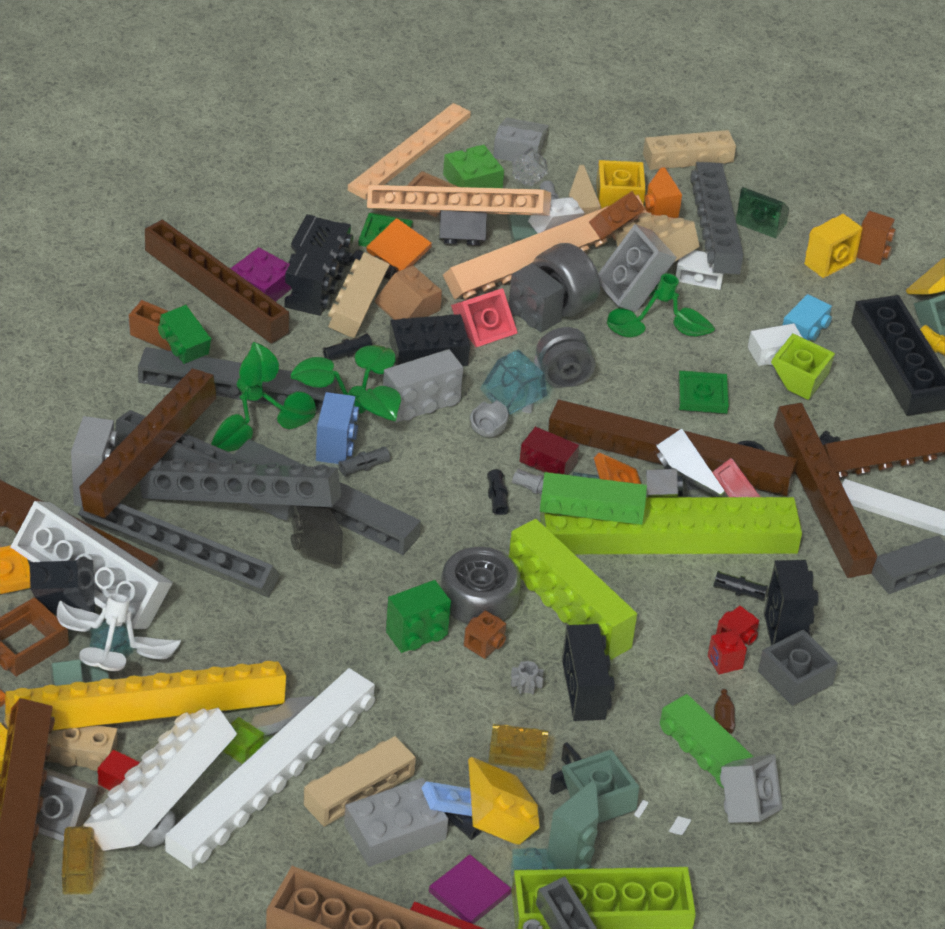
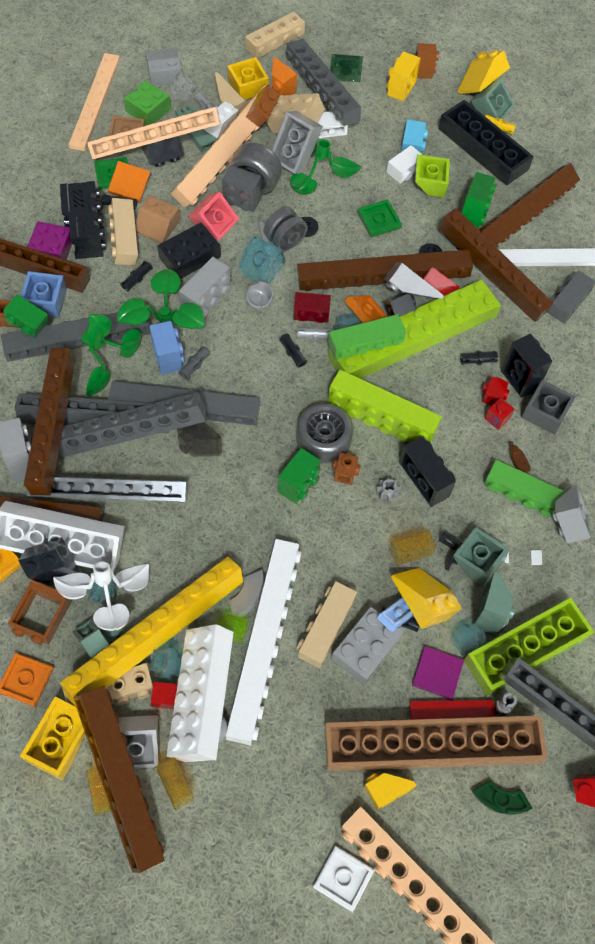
camera: 25 degrees left, 20 degrees up
(138, 737) = (166, 663): none -> clear light blue brick
(226, 323) = (45, 292): none -> medium blue brick
(604, 370) = (312, 226): none -> black piece
(843, 409) = (479, 199): none -> green brick

